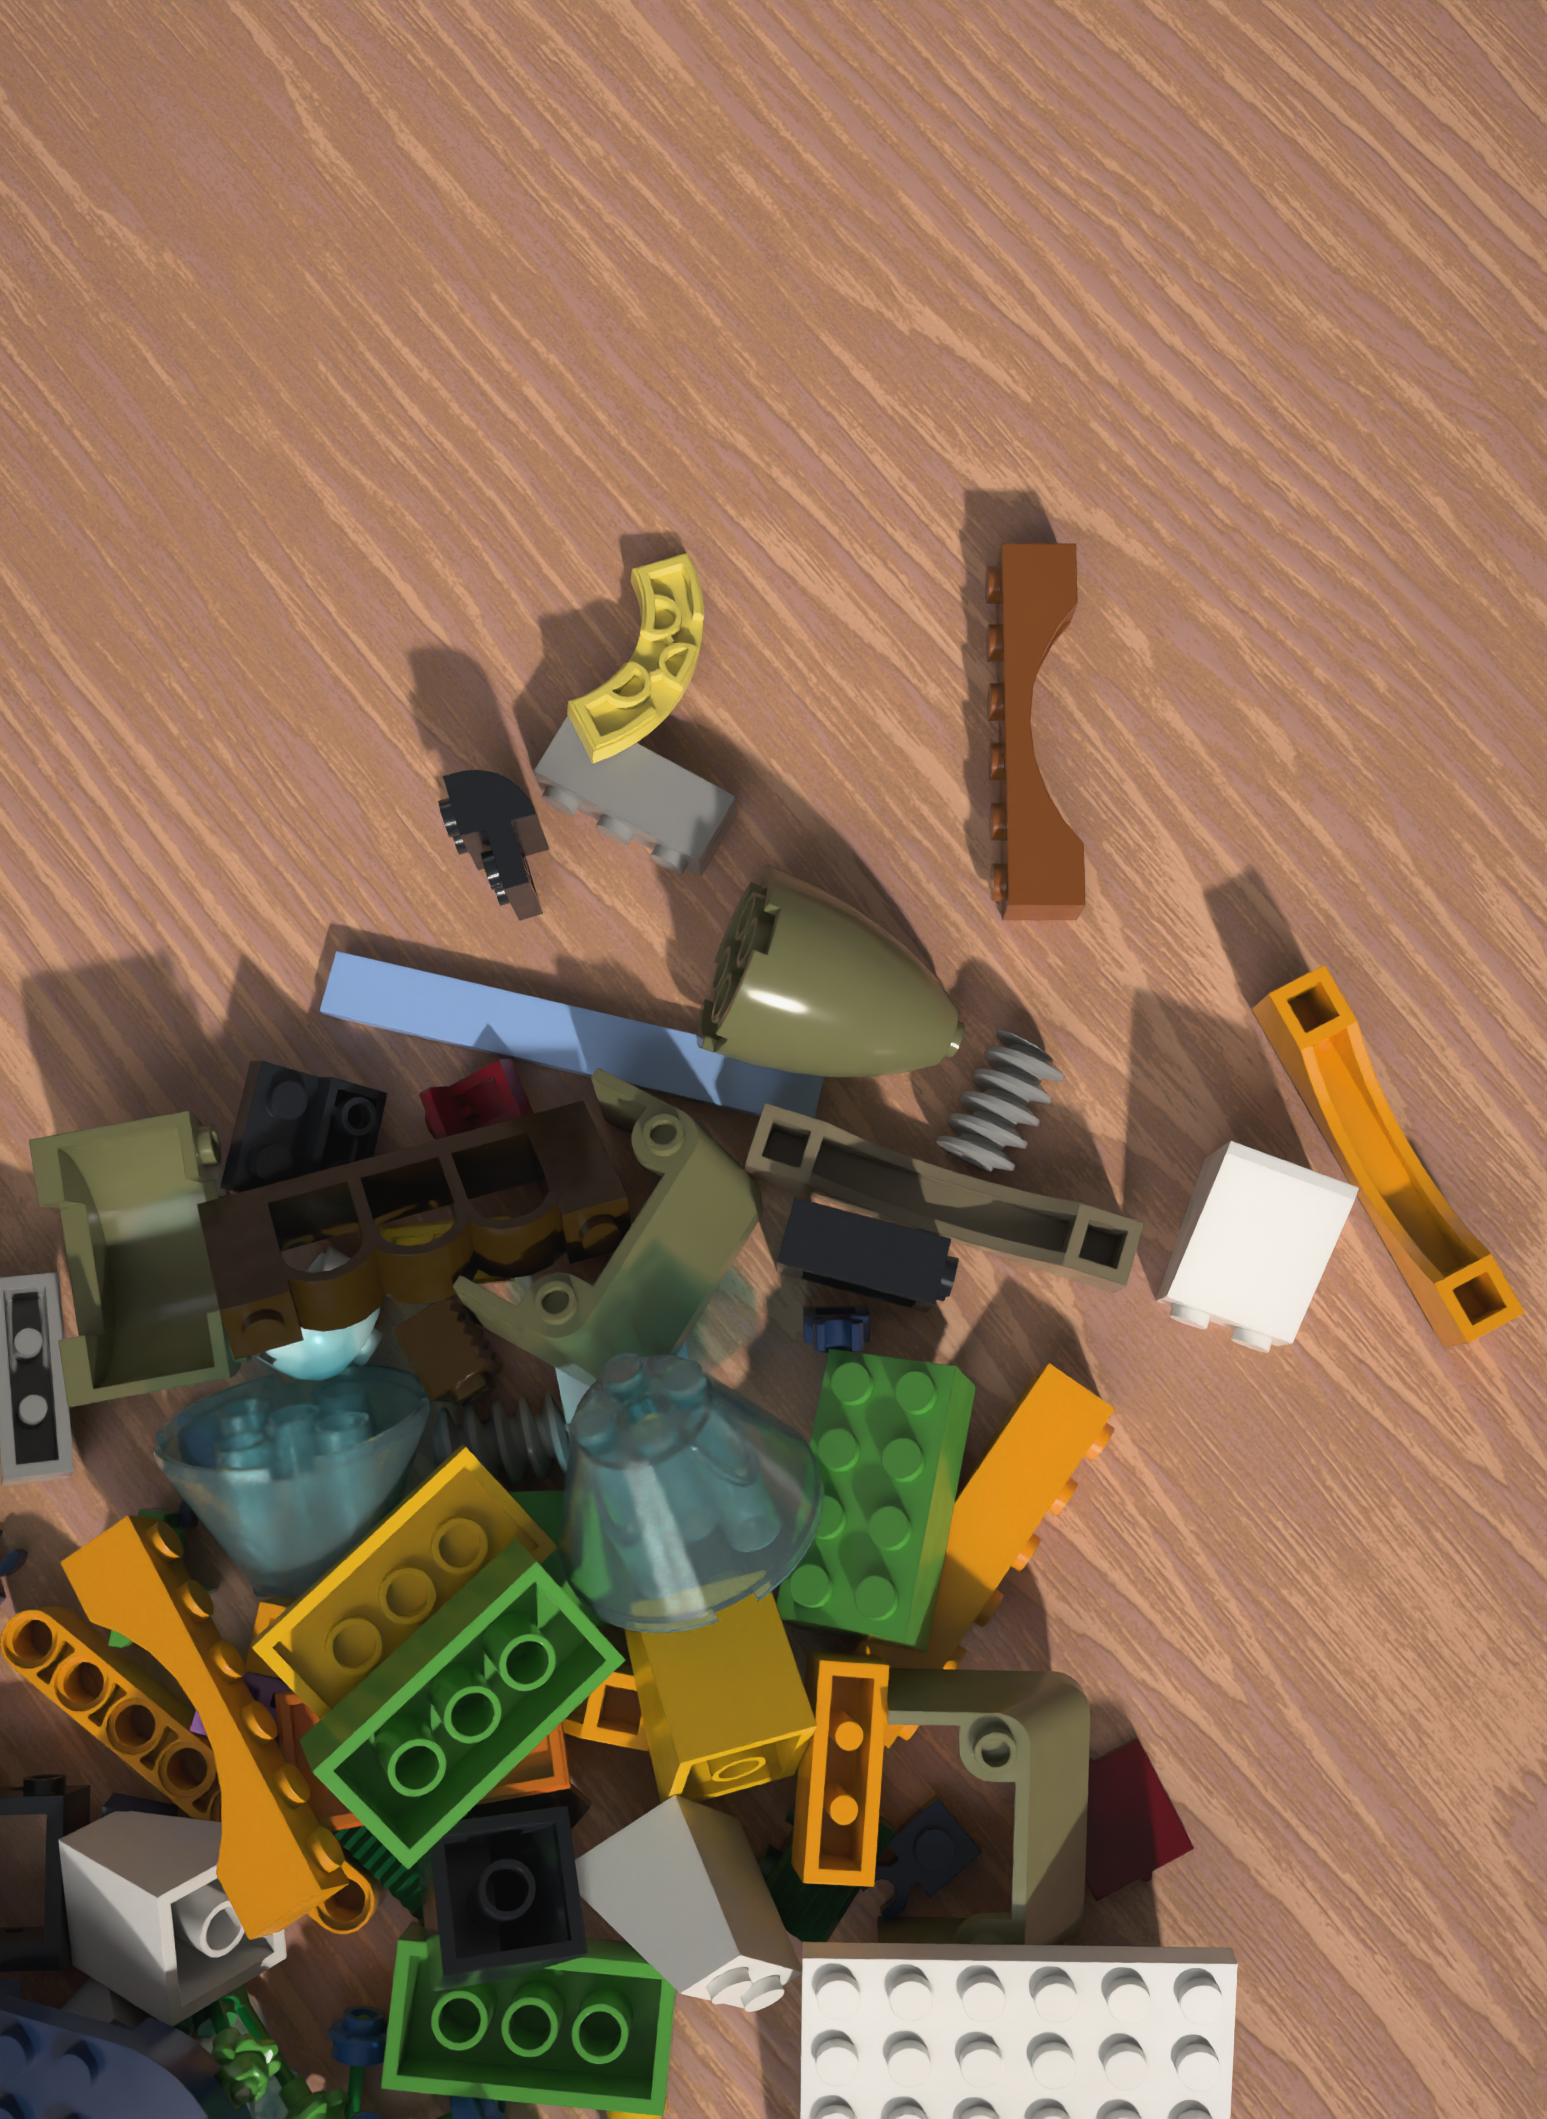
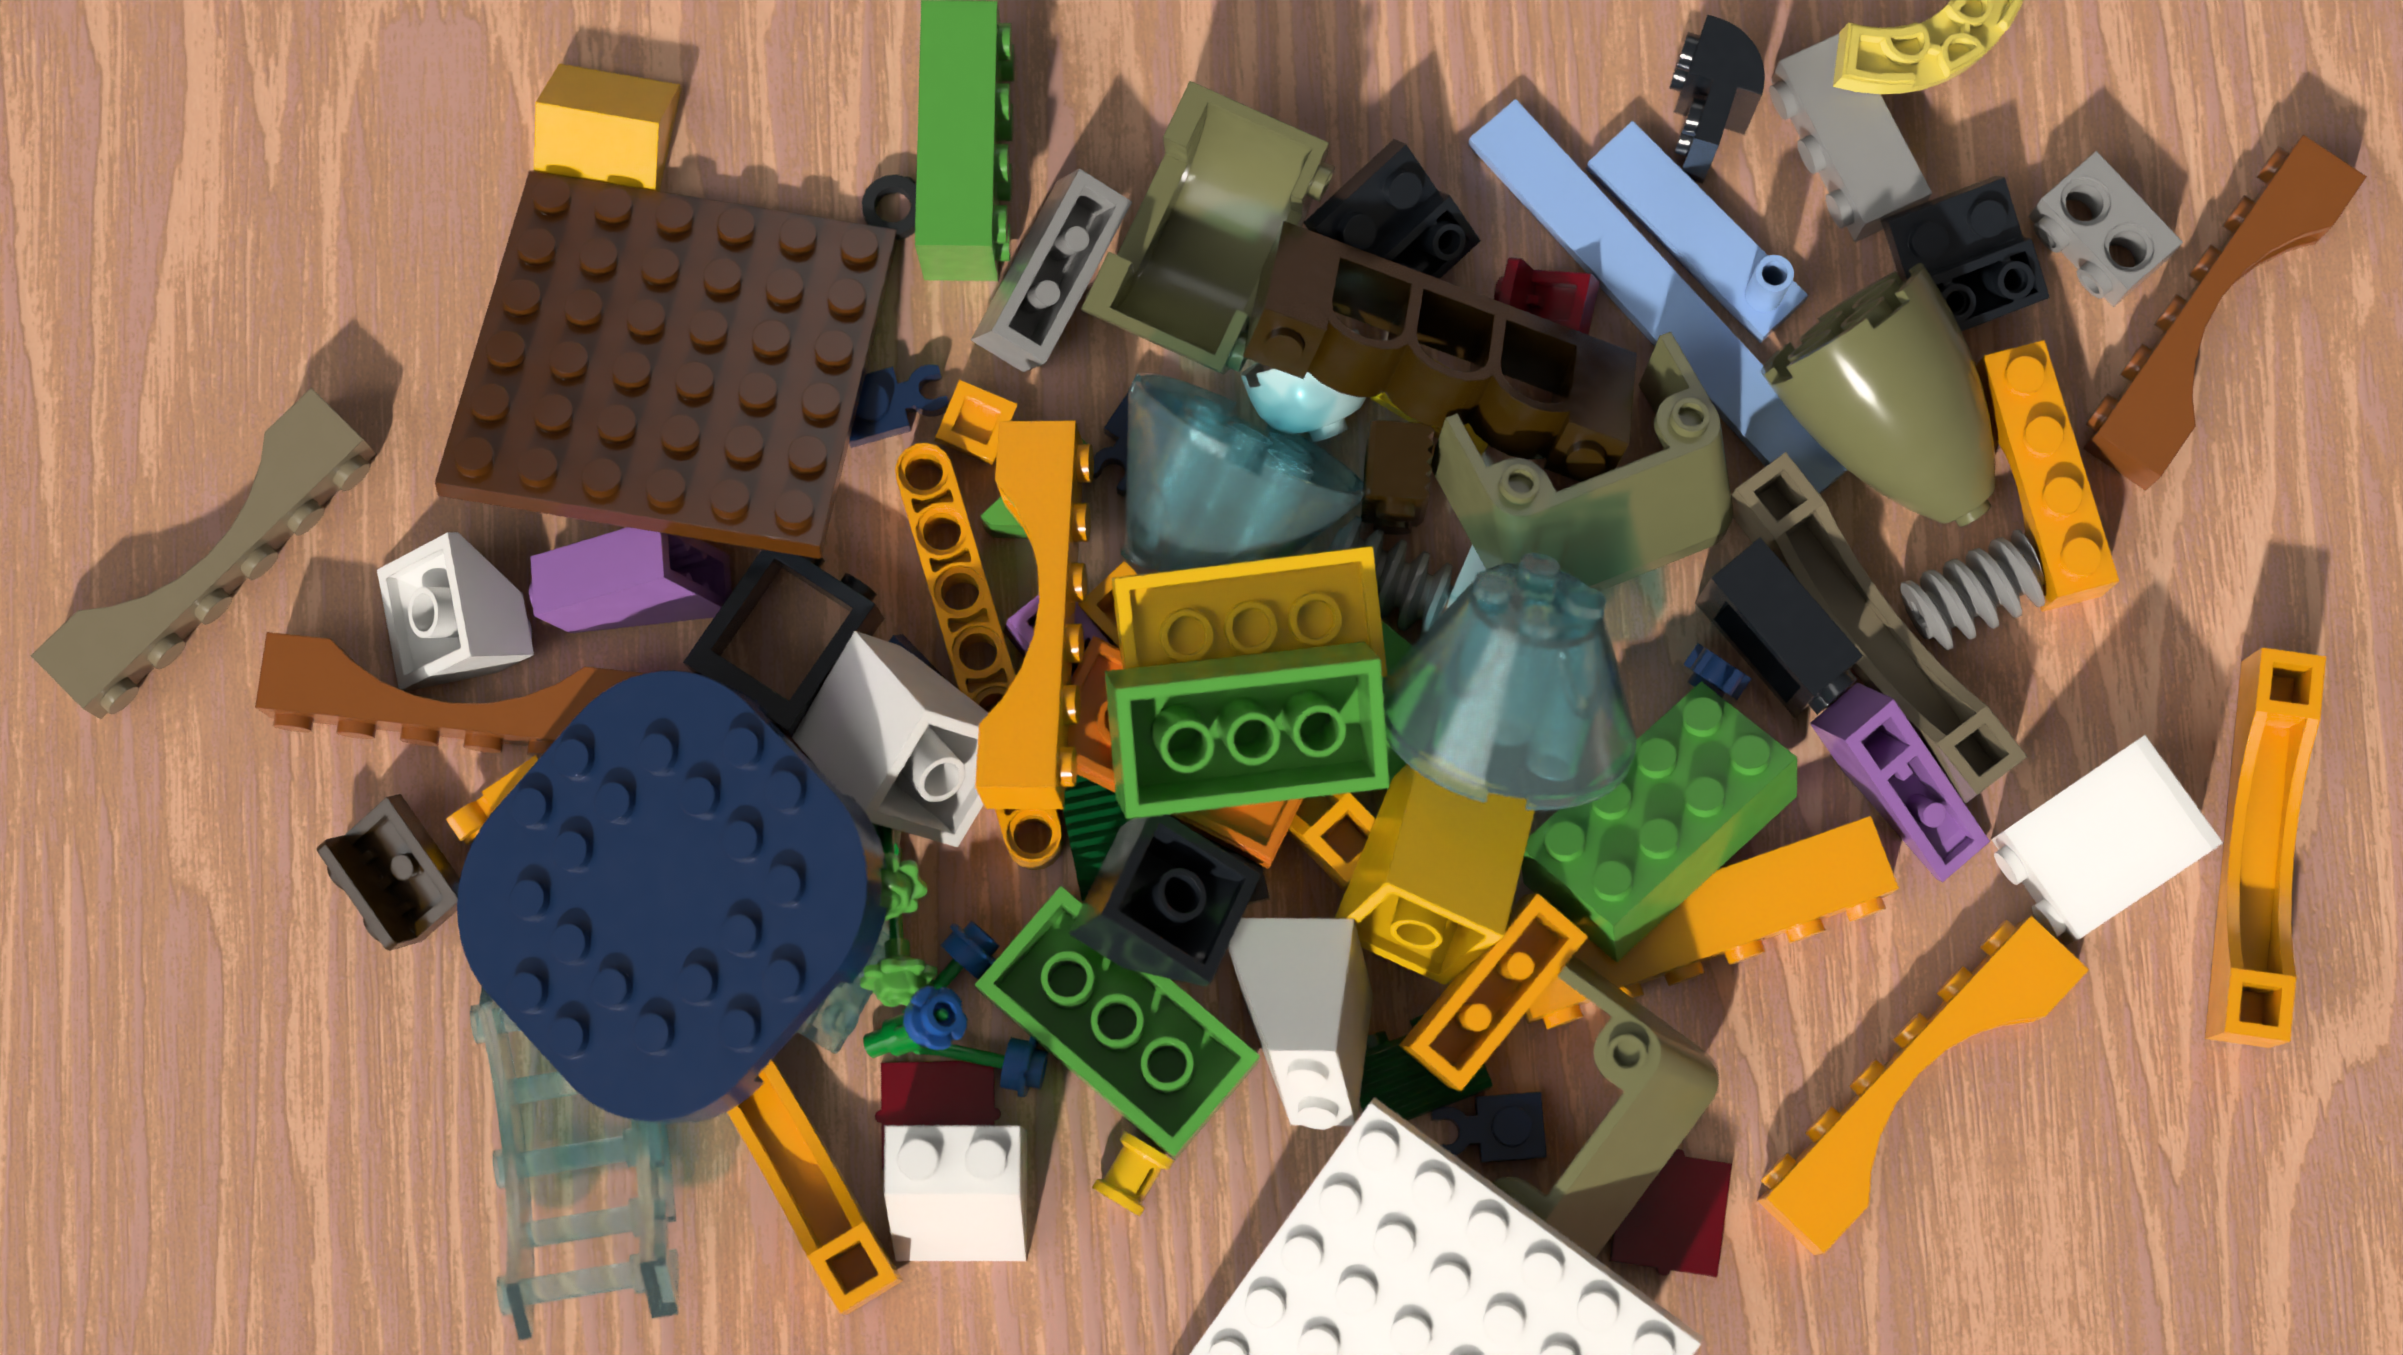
camera: 35 degrees right, 0 degrees up
(46, 1545) = (973, 421): none -> light orange plate
(564, 958) = (1697, 232): none -> light blue piece
(800, 824) = (1970, 251): none -> black brick
(900, 713) = (2117, 219): none -> light grey brick
(991, 964) = (2049, 474): none -> light orange arch
(1050, 1308) = (1900, 778): none -> medium lavender slope
(1229, 1705) = (1831, 1178): none -> light orange arch

